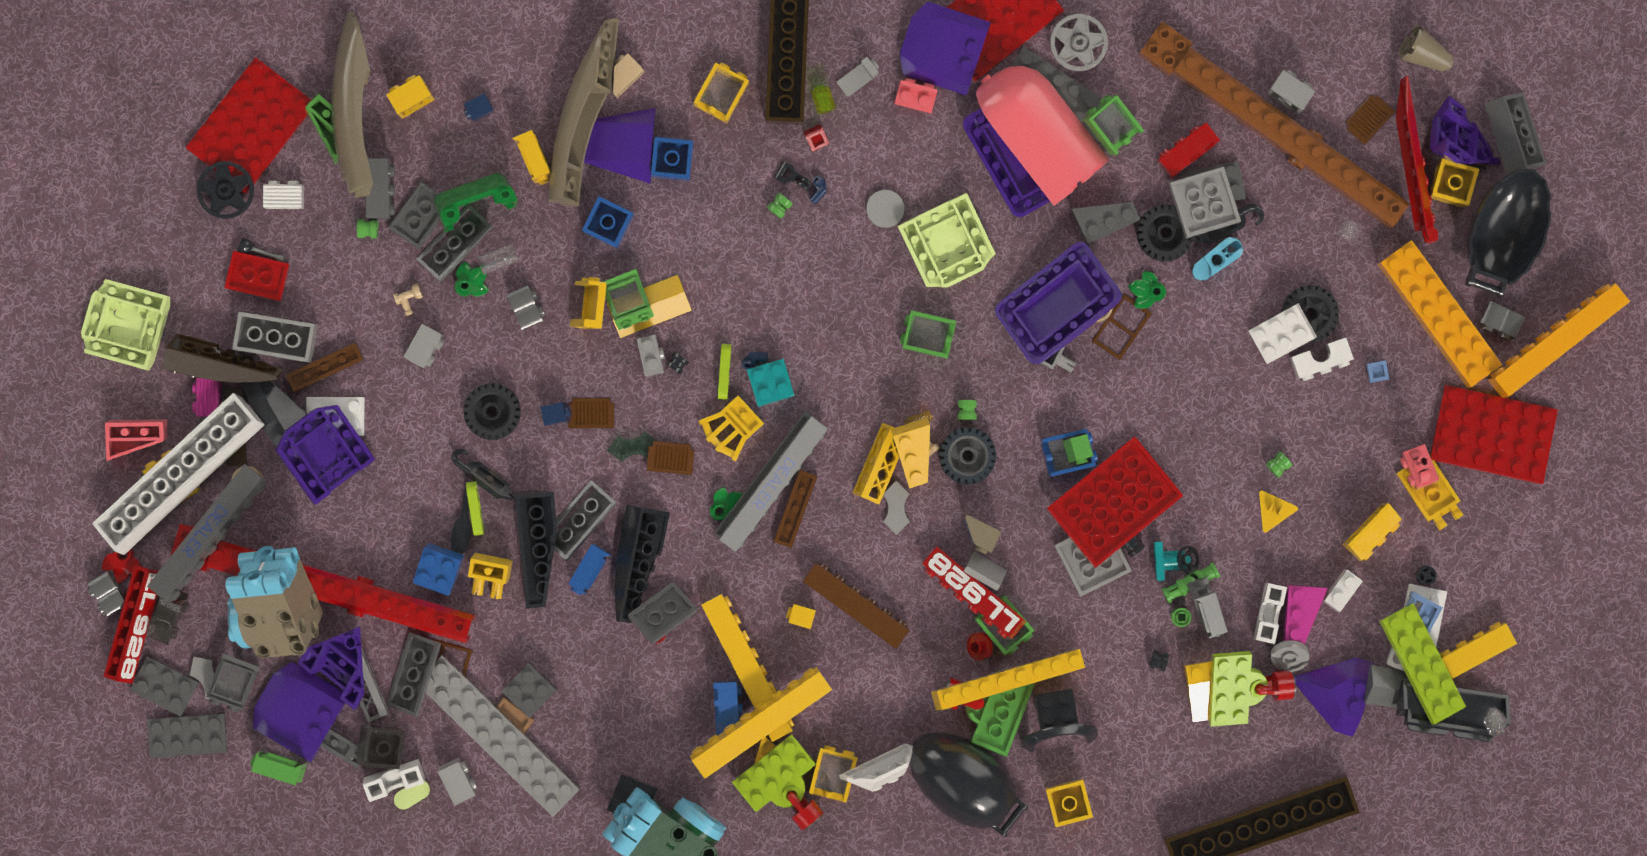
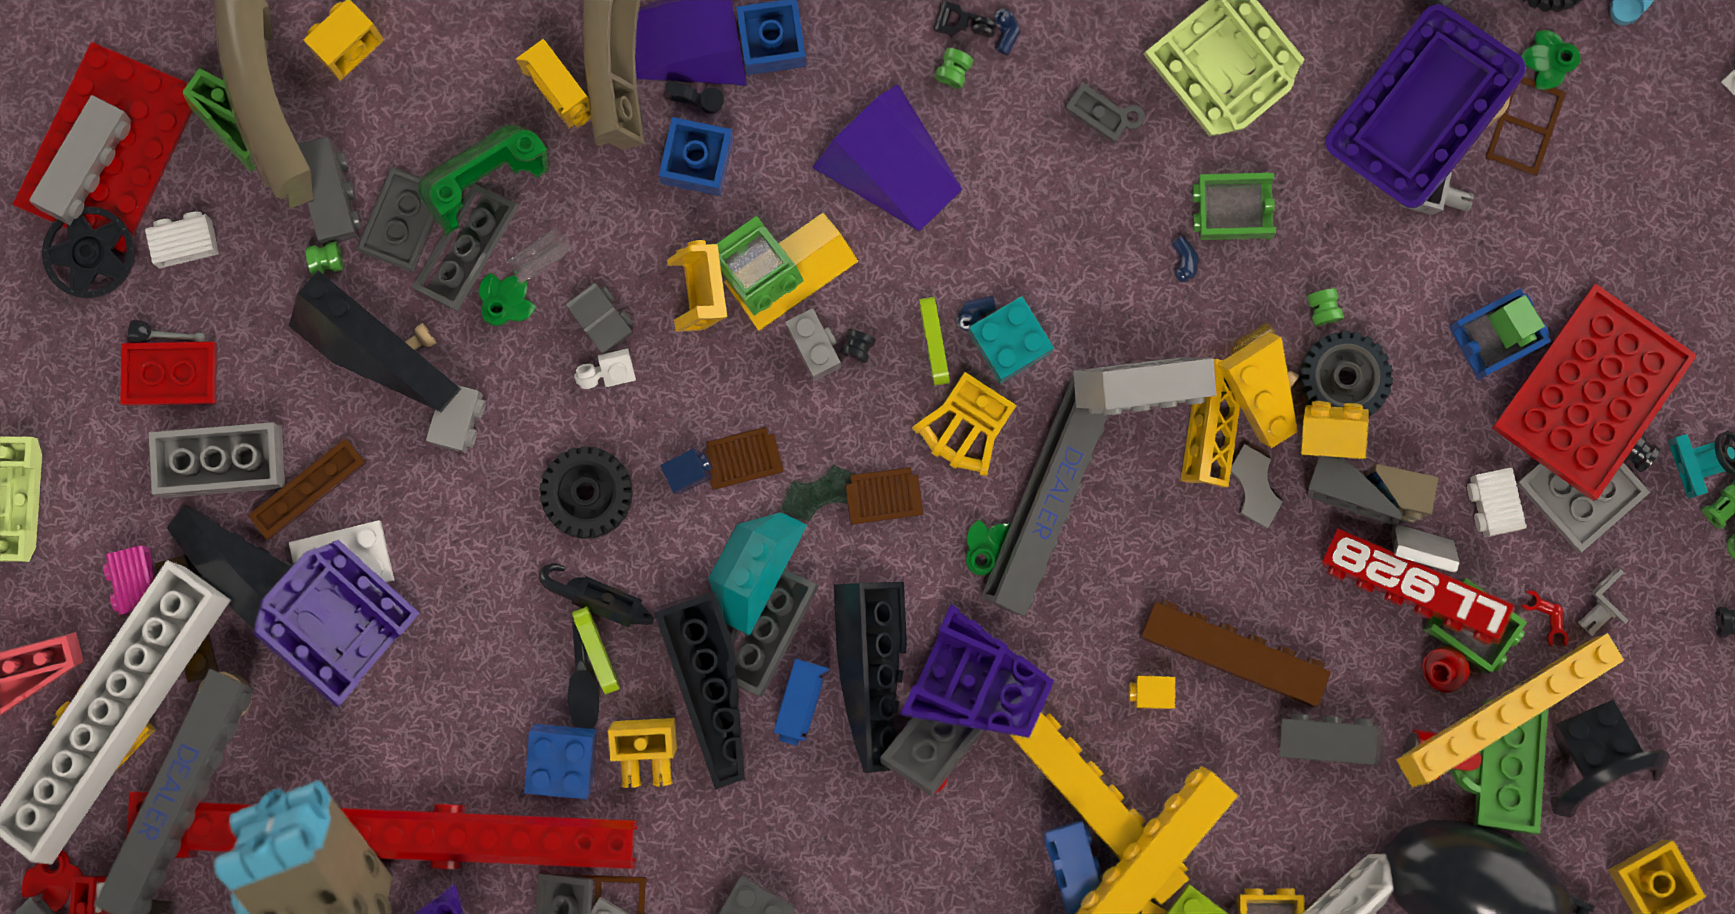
camera: 15 degrees left, 5 degrees down
(208, 361) = (119, 523): dark brown wedge -> none
(234, 133) = (81, 160): none -> light grey brick
(380, 290) = (365, 345): none -> black wedge
(478, 108) = (453, 34): dark blue brick -> none
(527, 340) = (614, 368): none -> white plate
(580, 481) = (753, 566): none -> teal wedge
(625, 188) = (710, 100): none -> black piece
(696, 584) = (977, 682): none -> dark purple wedge
(727, 254) = (891, 161): none -> dark purple wedge
(795, 509) = (1099, 527): reddish brown plate -> none
(841, 431) = (1144, 385): none -> light grey brick
(863, 256) = (1102, 114): none -> dark grey hinge
(885, 208) = (1116, 35): light grey tile -> none
(892, 360) = (1189, 260): none -> dark blue arm
(900, 672) = (1332, 740): none -> dark grey wedge
(946, 521) = (1346, 488): none -> dark grey slope
(948, 488) = (1335, 430): none -> yellow brick
(1038, 554) = (1496, 502): none -> white brick
(1055, 629) = (1555, 612): none -> red arm
(1084, 634) = (1604, 609): none -> light grey bracket

